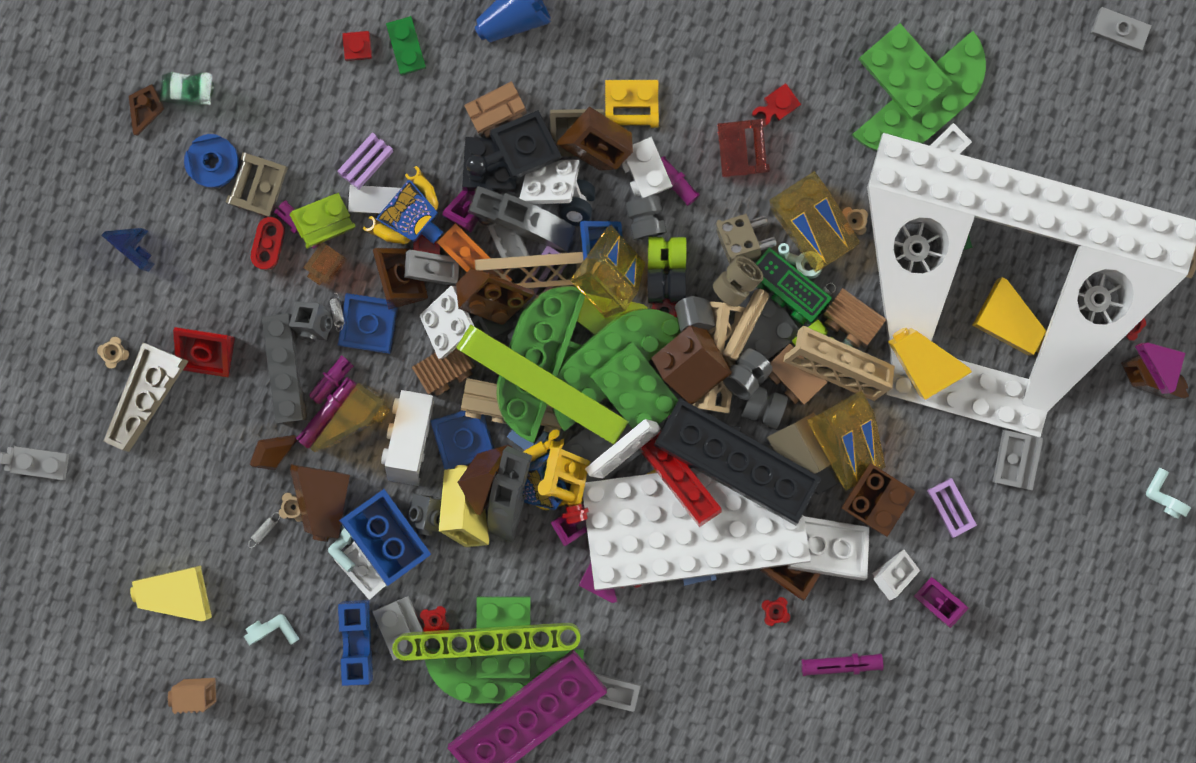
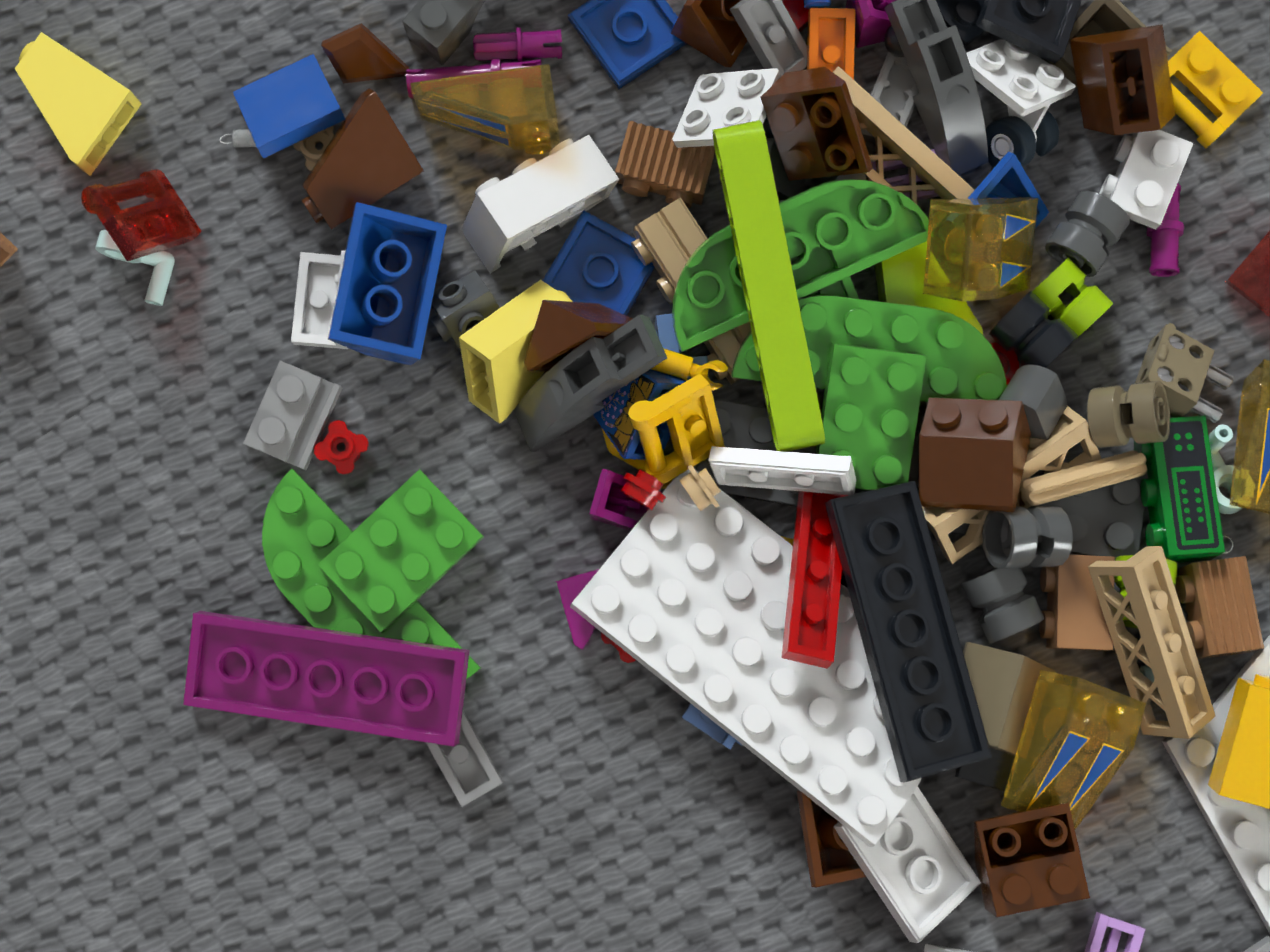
camera: 40 degrees right, 5 degrees down
(262, 615) = (146, 226): none -> clear red plate
(264, 505) = (288, 106): none -> blue tile
(336, 552) = (313, 242): light aqua plate -> none
(357, 650) = (201, 396): blue arch -> none
(474, 647) = (355, 518): lime beam -> none
(598, 490) = (700, 488): none -> tan plate
(781, 616) = (763, 879): red plate -> none

